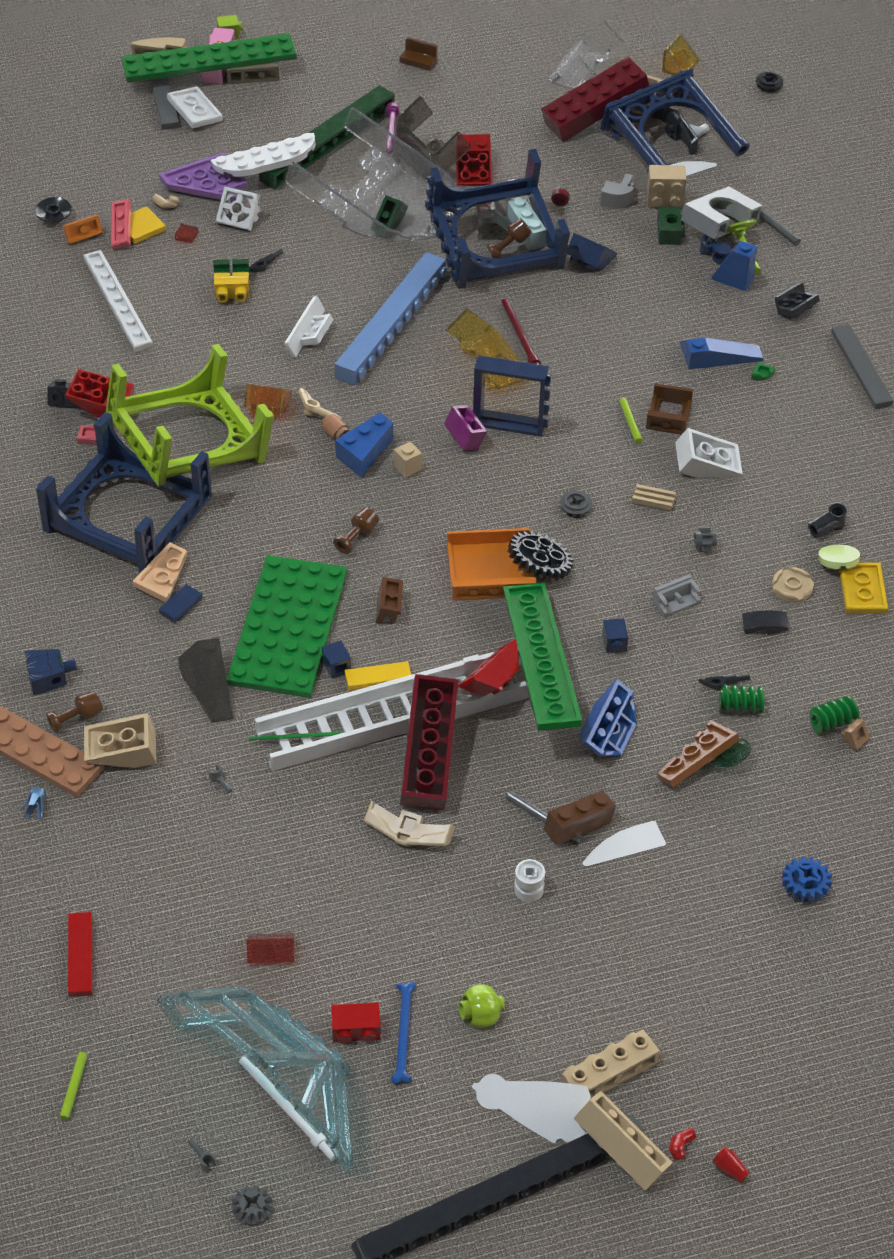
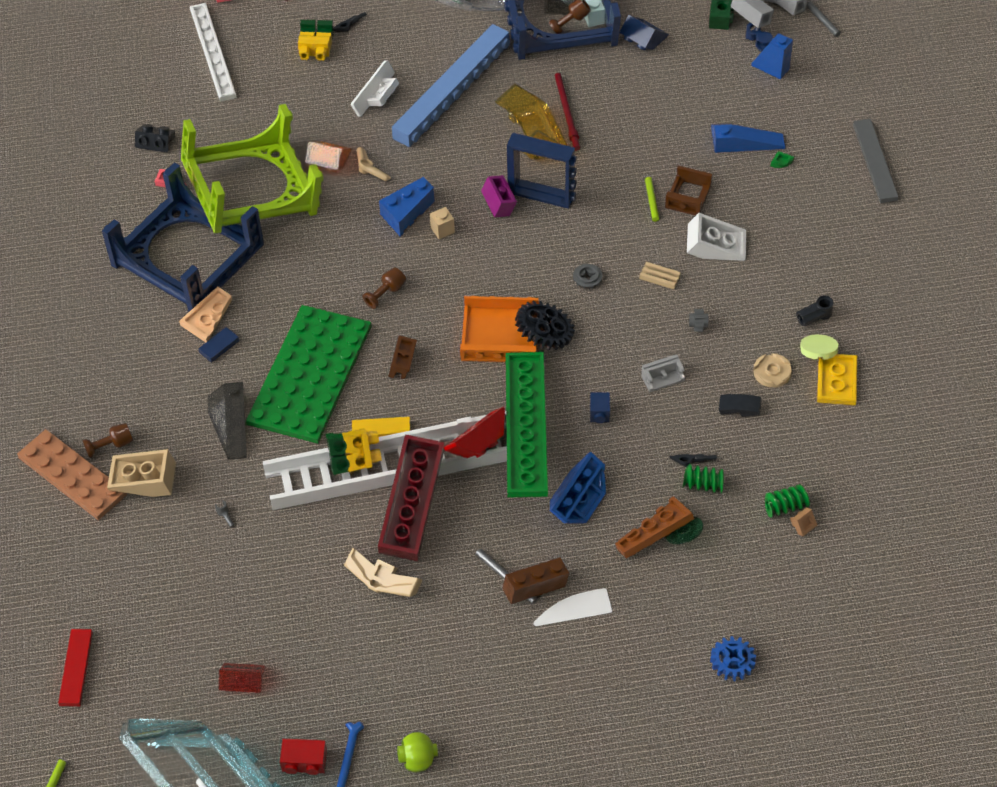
camera: 10 degrees right, 5 degrees up
(35, 797) = (62, 517): flat silver piece -> none
(47, 669) = (91, 398): dark blue torso -> none
(91, 392) = (168, 139): red slope -> none
(290, 736) = (298, 479): green piece -> none
(334, 426) = (382, 186): nougat brick -> none
(336, 659) = (345, 409): dark blue brick -> none
(354, 699) = (351, 450): none -> yellow hips
(529, 880) = (480, 636): white wheel -> none
(739, 230) = (783, 20): lime dish -> none
(795, 301) = (823, 92): black bracket -> none

